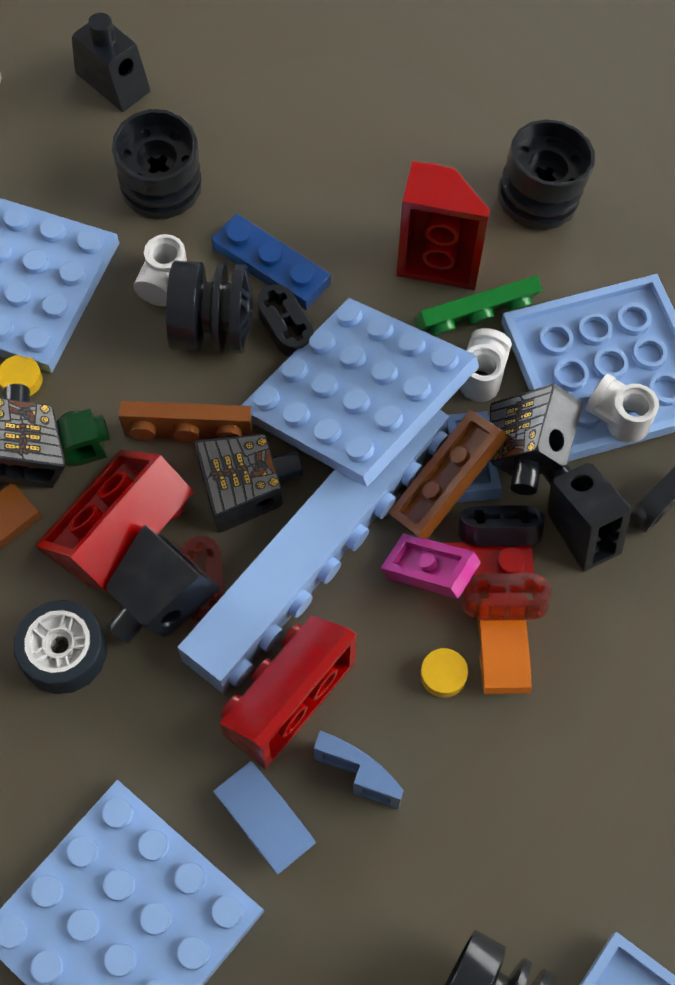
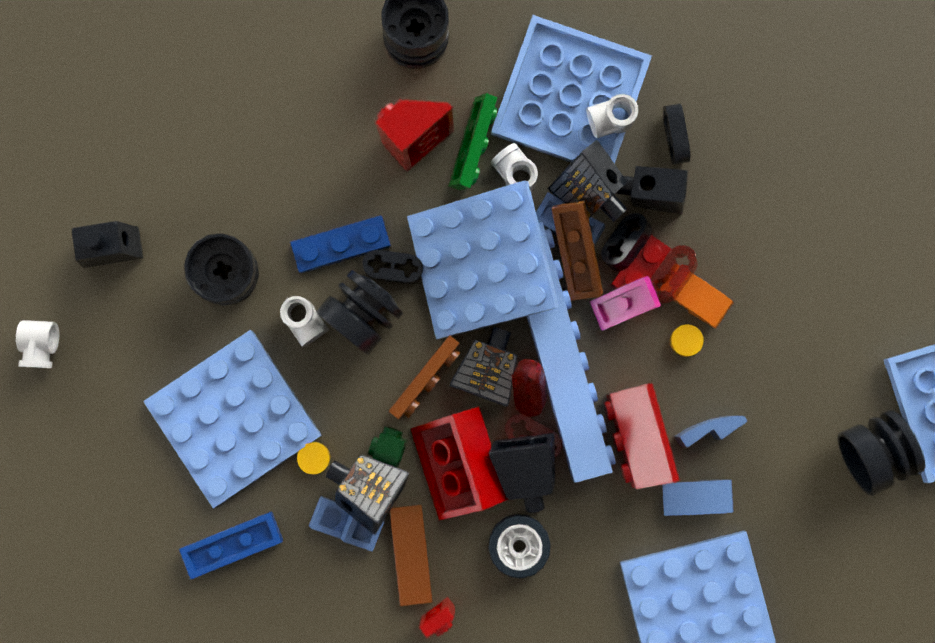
camera: 50 degrees left, 20 degrees up
(254, 527) = (523, 387): none -> clear red beam

